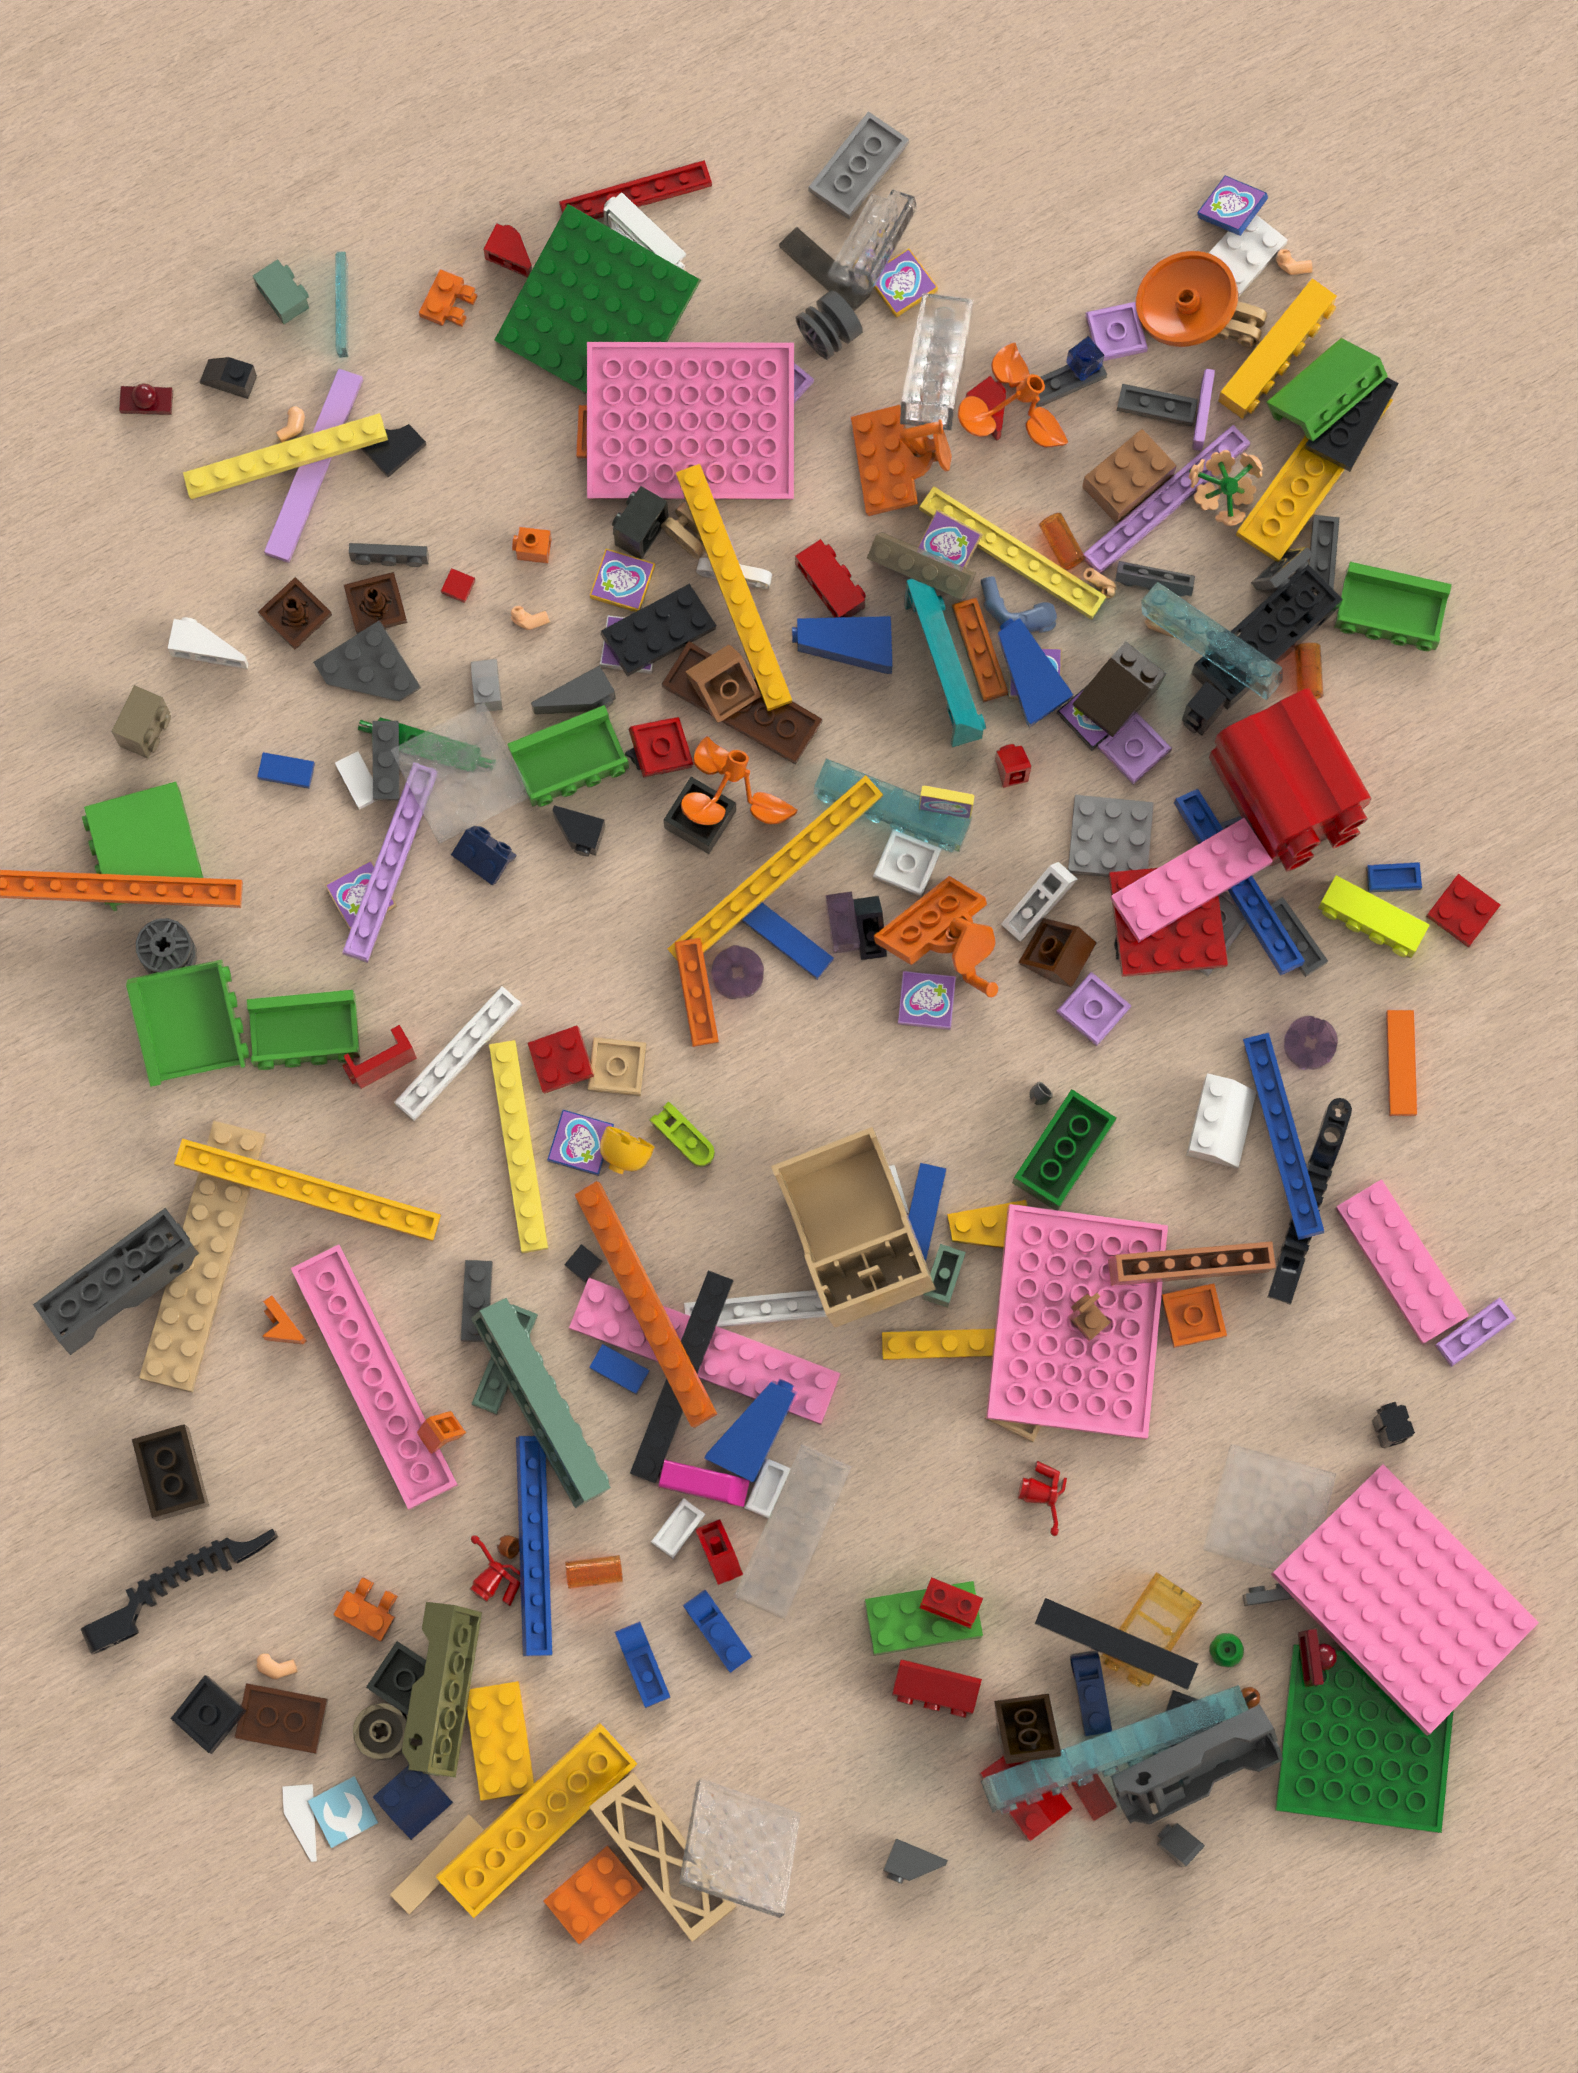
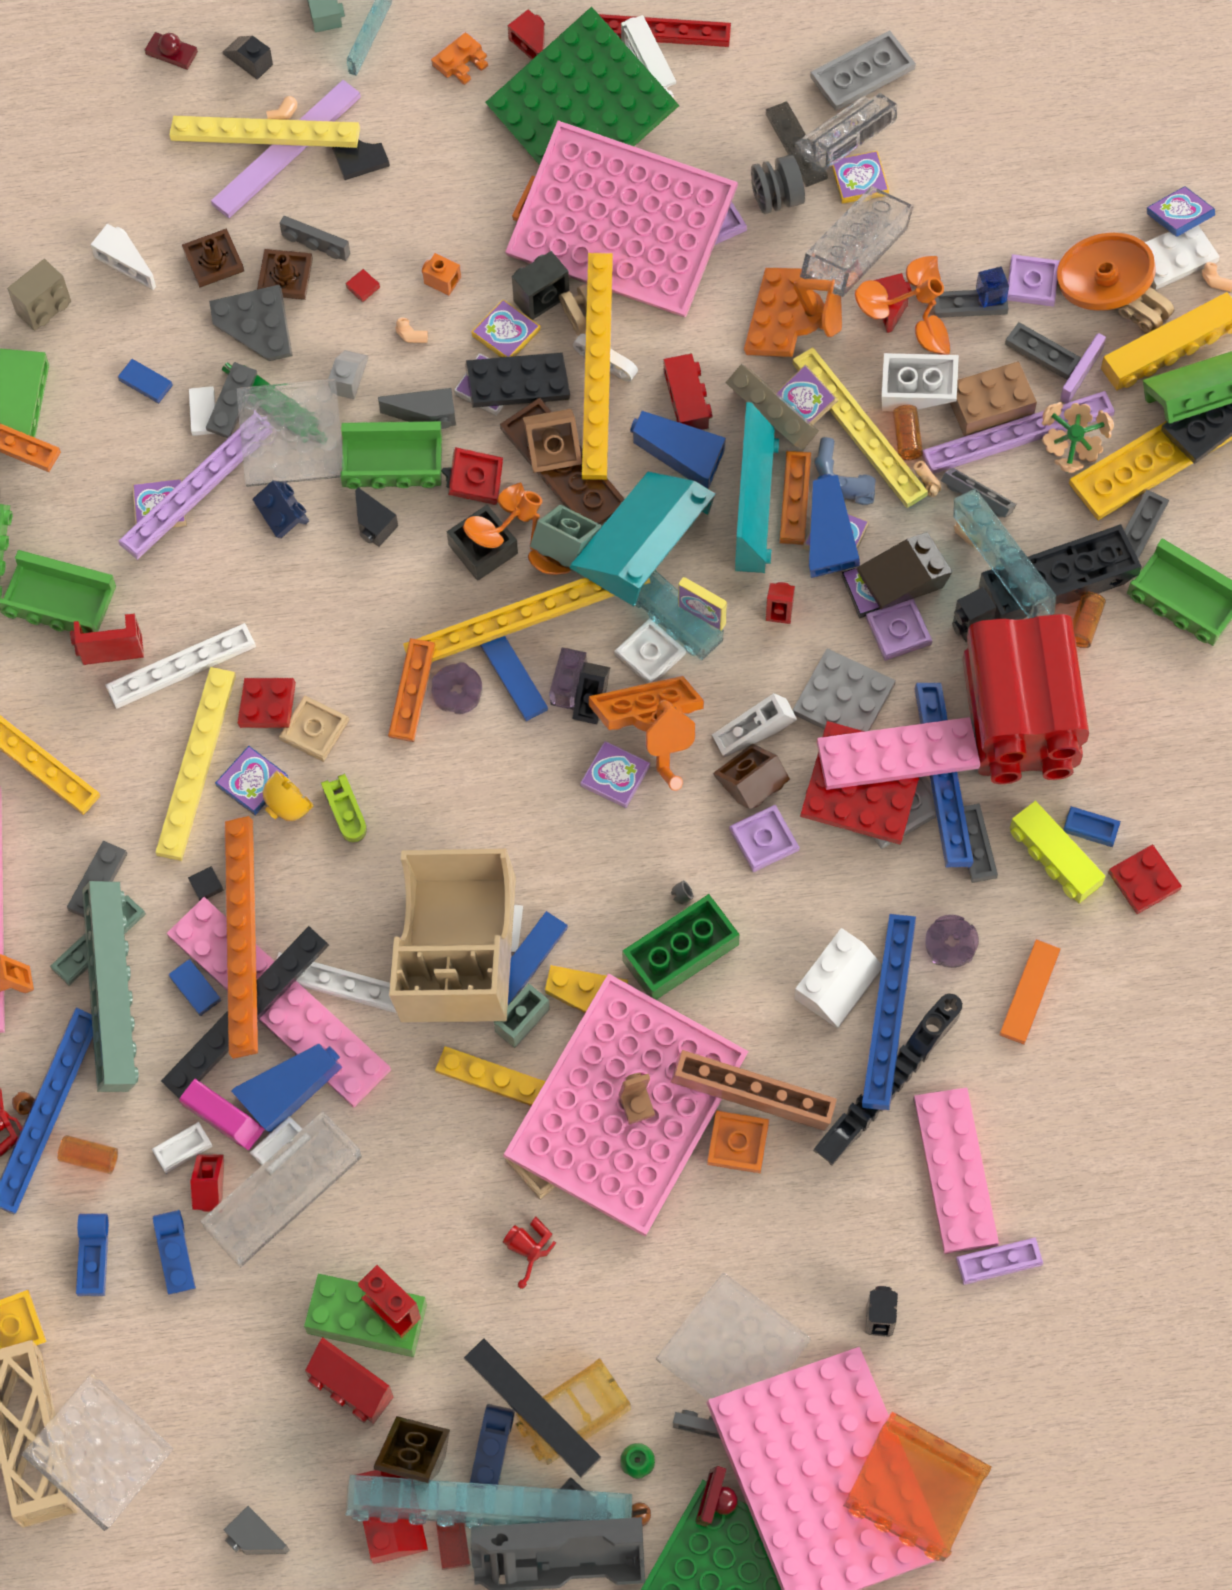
camera: 25 degrees right, 10 degrees down
(780, 779) = (563, 534): none -> sand green brick
(854, 748) = (642, 533): none -> teal slope
(1053, 485) = (919, 380): none -> white slope
(1278, 572) = (1103, 521): dark grey plate -> none
(1488, 1574) = (916, 1487): none -> clear orange panel

